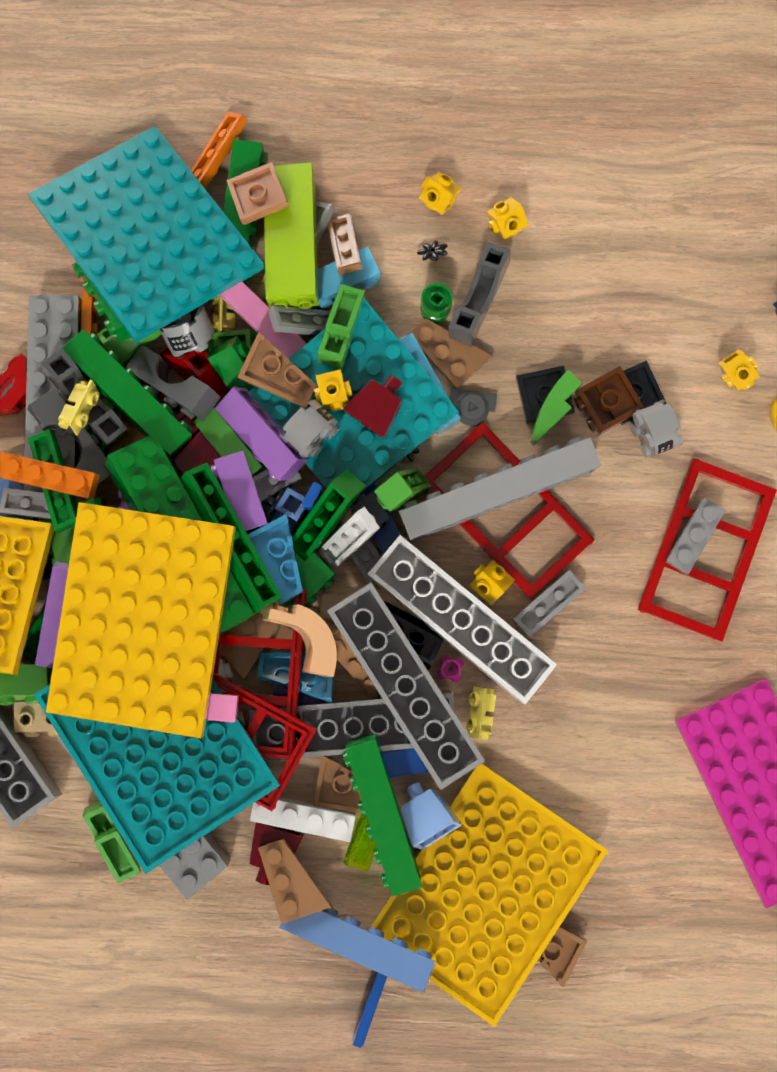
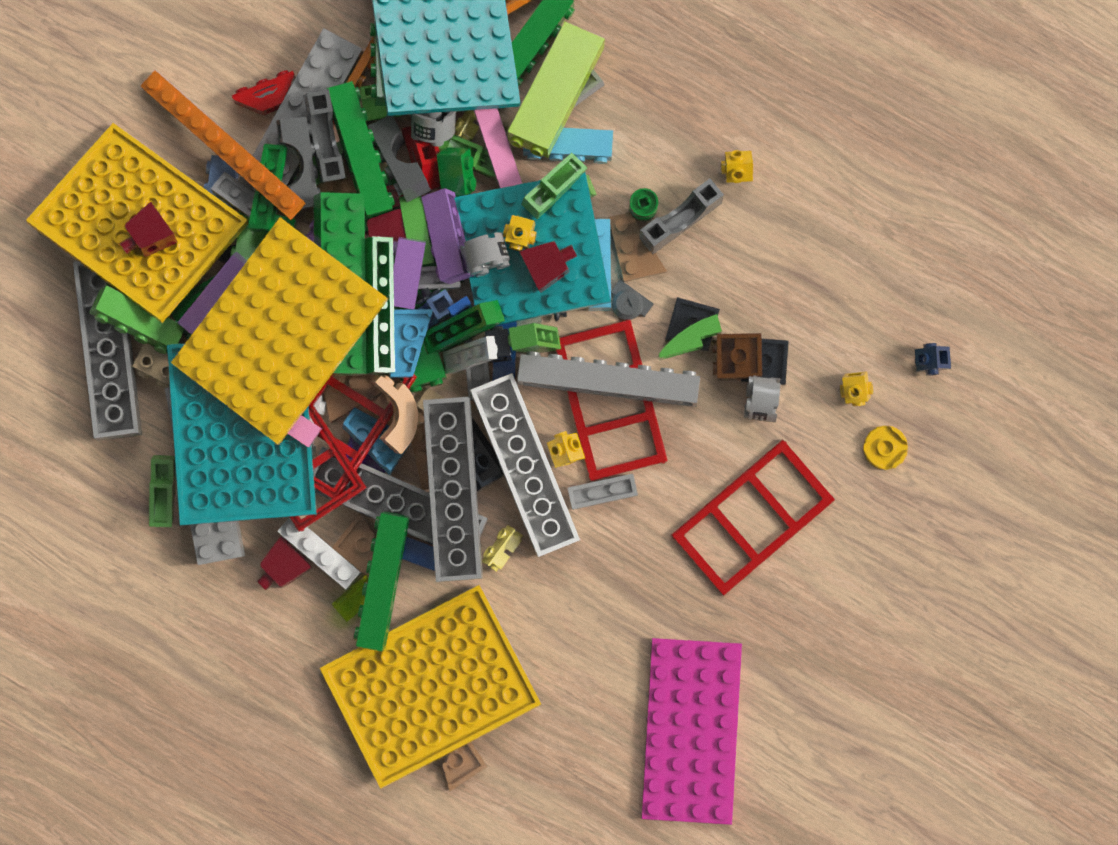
camera: 30 degrees right, 0 degrees up
(84, 396) = (325, 136): light yellow hinge -> none
(257, 193) = (547, 43): nougat plate -> none
(276, 374) = (483, 196): medium nougat wing -> none
(290, 884) = (283, 594): medium nougat wing -> none
(298, 320) = (524, 161): light grey plate -> none
(344, 244) = (595, 119): tile -> none
(365, 947) = (310, 669): medium blue brick -> none
(369, 1009) = (294, 723): blue tile -> none
(427, 816) = (415, 604): light blue torso -> none
(432, 252) = (665, 160): black plant -> none
(439, 192) = (695, 116): yellow brick -> none
(446, 662) = (497, 507): dark pink plate -> none
(695, 536) = (748, 500): light grey plate -> none

